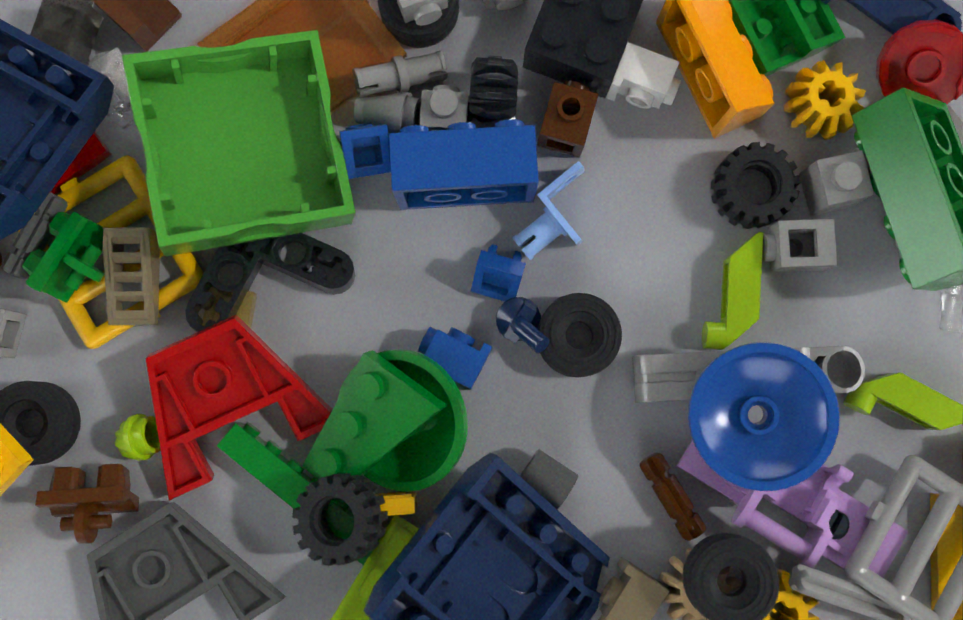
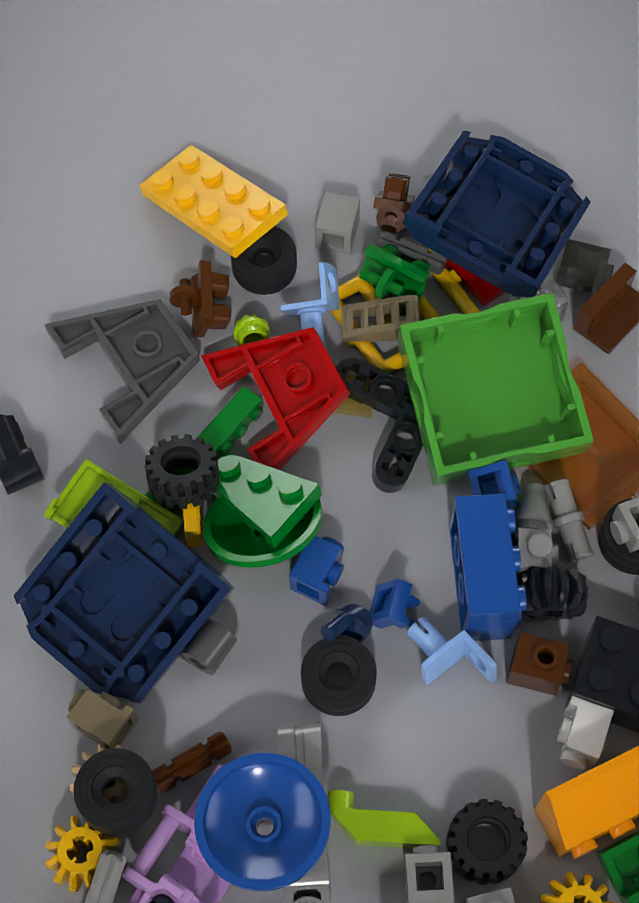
camera: 90 degrees right, 20 degrees down
(118, 361) = (312, 311): none -> light blue bracket

